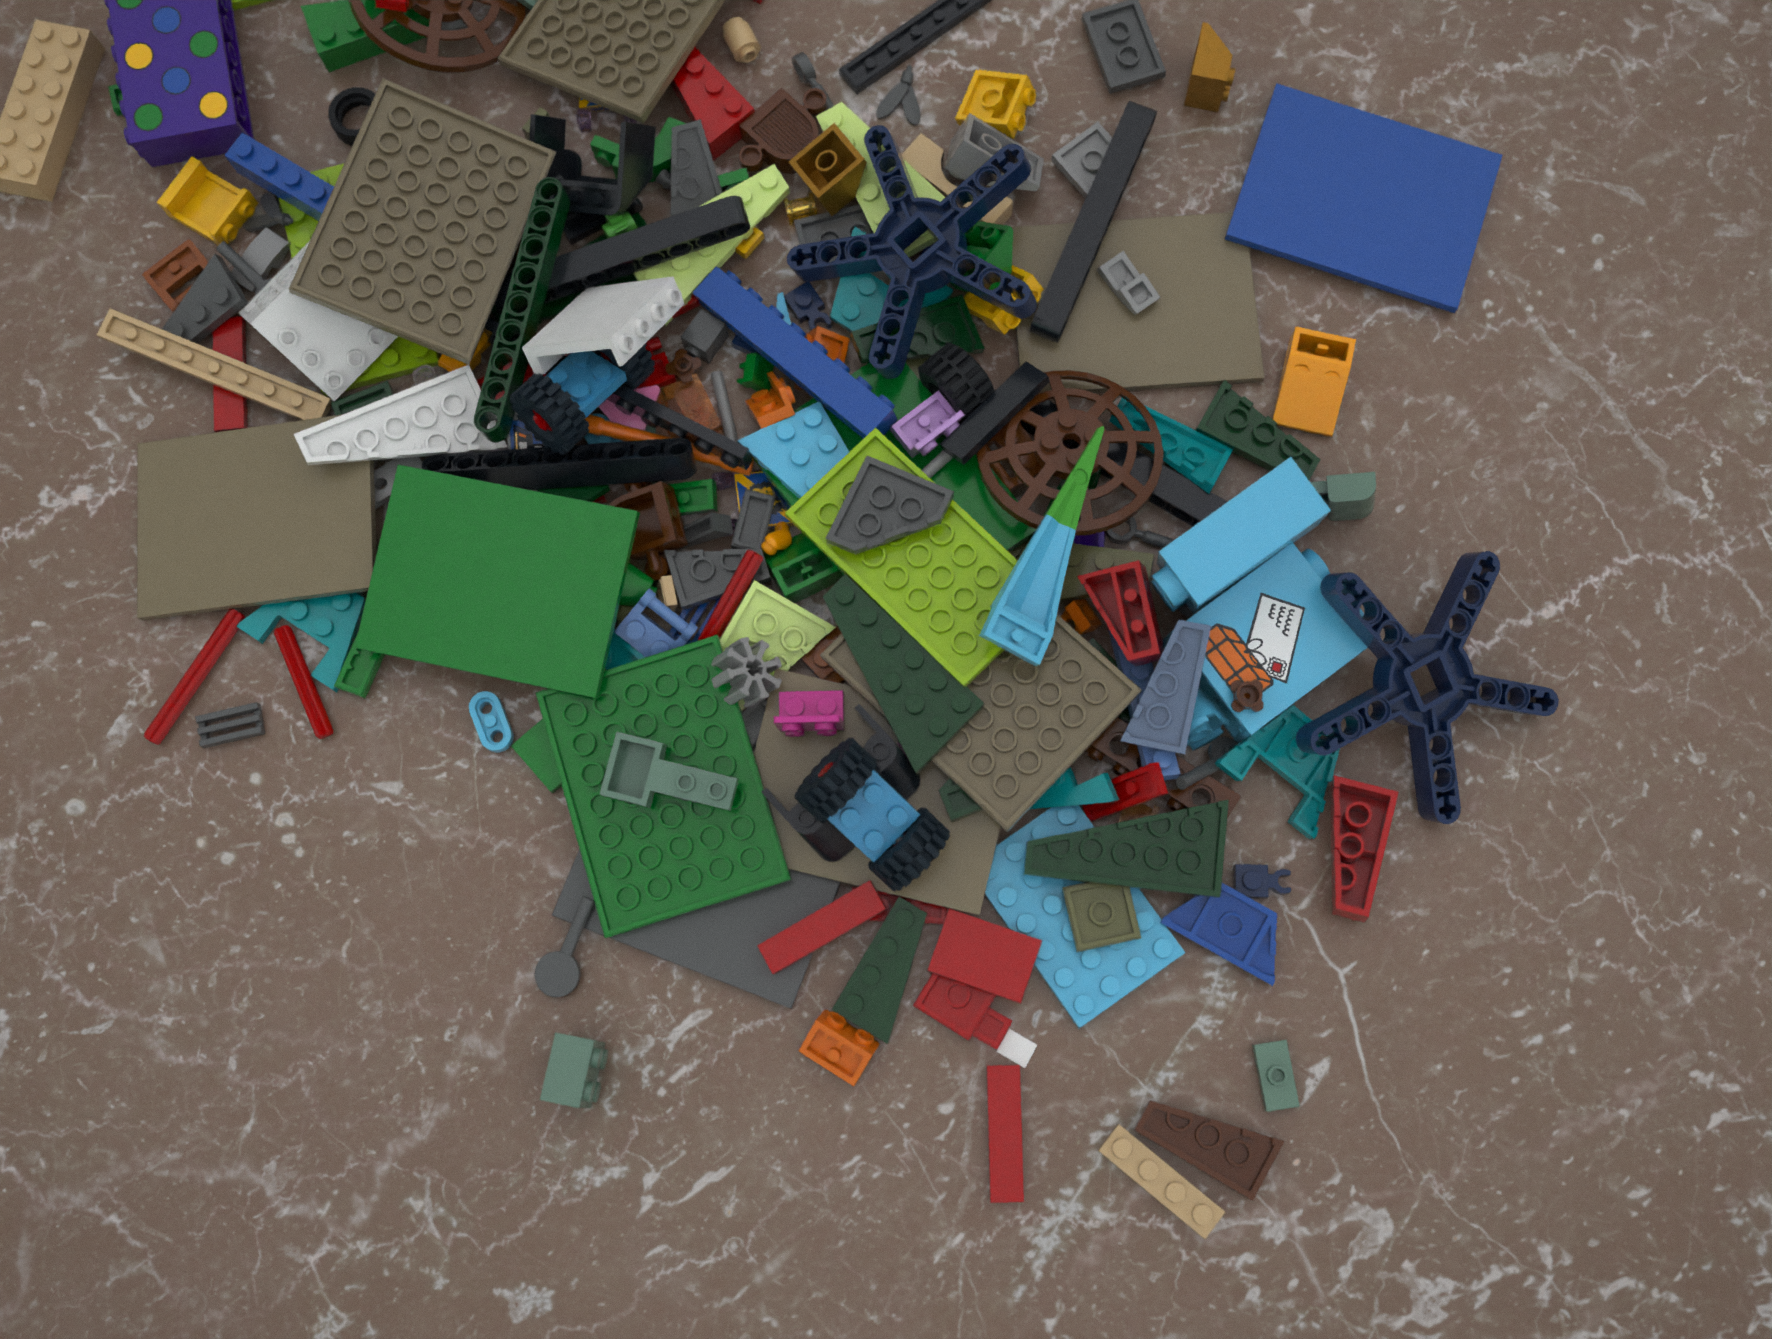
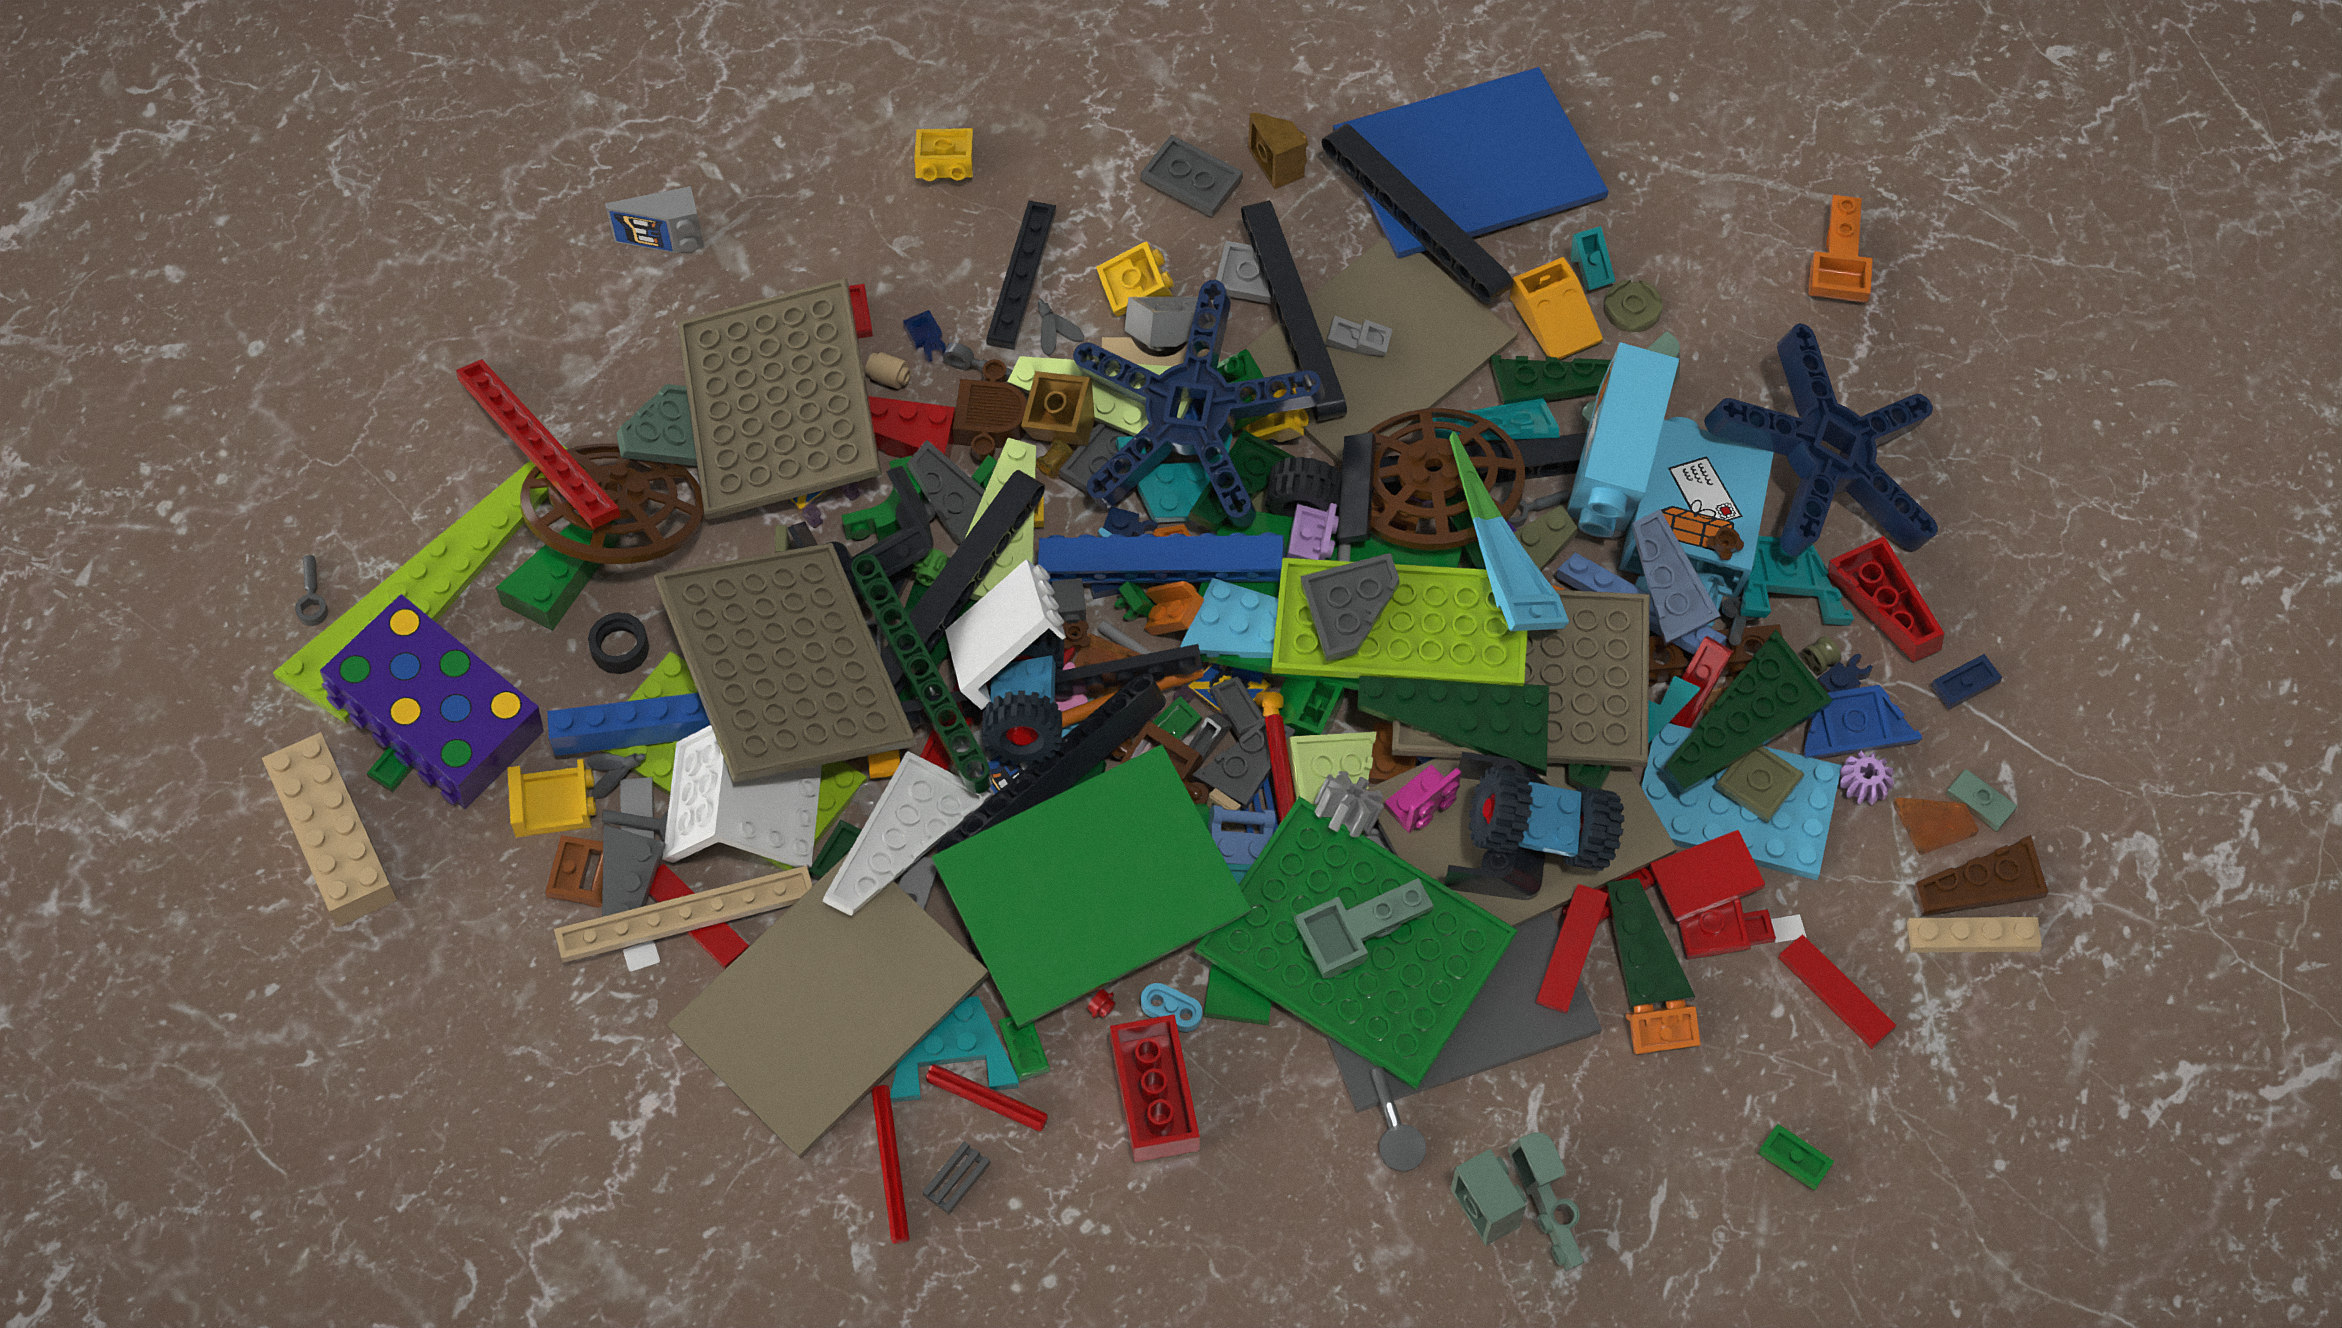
camera: 45 degrees left, 15 degrees down
(171, 377) = (641, 955): none -> white sticker
(415, 776) = (1154, 1088): none -> red brick
(444, 678) = (1101, 1004): none -> red plate
(627, 1087) = (1538, 1169): none -> sand green plate
(796, 29) = (925, 332): none -> clear blue plate
(843, 1239) = (1796, 1157): none -> green plate
(1128, 608) = (1585, 552): red wedge -> none
(1195, 969) = (1875, 787): none -> lavender gear
(1218, 1062) = (1934, 823): none -> clear orange wing
(1256, 847) = (1821, 654): none -> olive wheel
(1269, 212) = (1417, 213): none -> black beam
(1359, 967) = (1966, 681): none -> dark blue plate
(1386, 359) = (1593, 258): none -> teal slope
(1387, 425) = (1633, 306): none -> olive tile
(1594, 530) = (1841, 271): none -> orange plate

